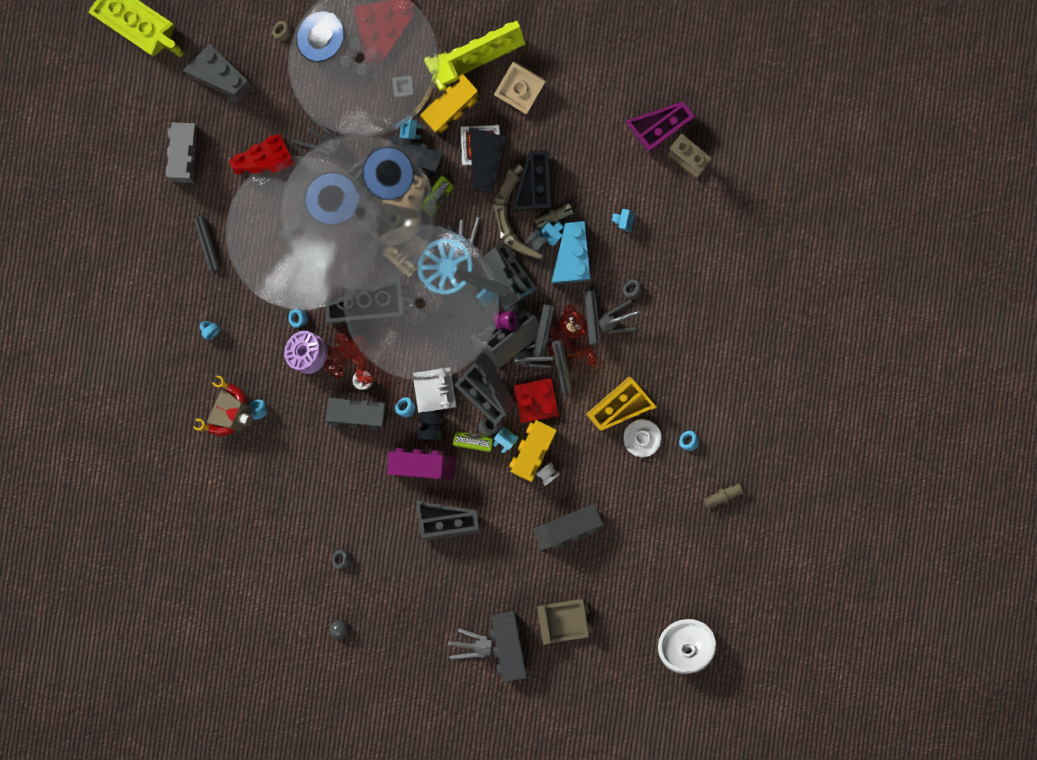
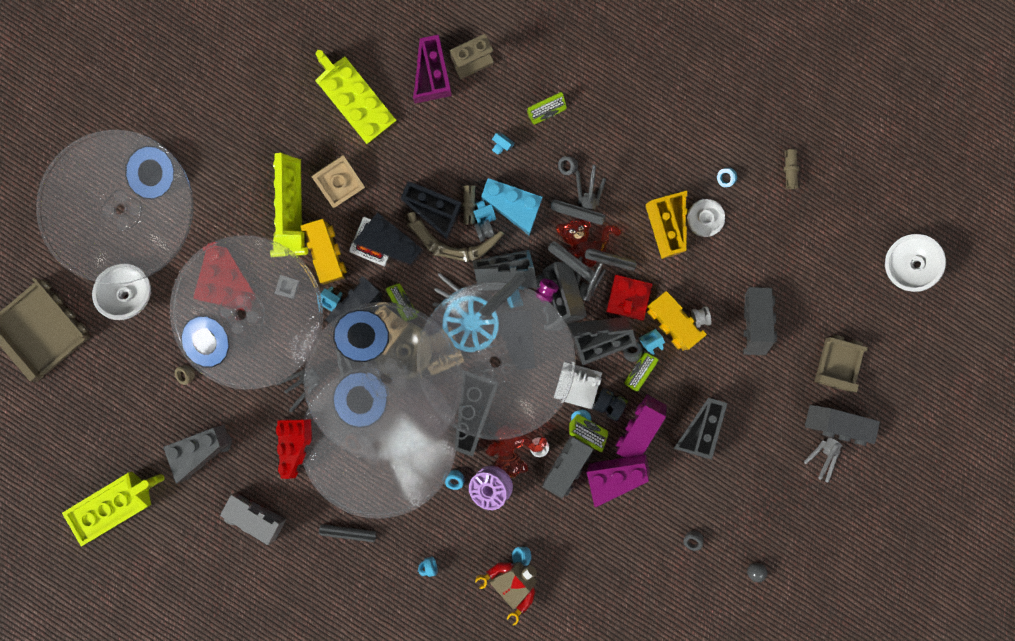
camera: 70 degrees left, 0 degrees up
(366, 459) = (616, 476): none -> magenta wedge
(395, 418) = (588, 432): none -> slope
(603, 67) = (353, 98): none -> neon yellow hinge
(675, 246) = (546, 108): none -> slope

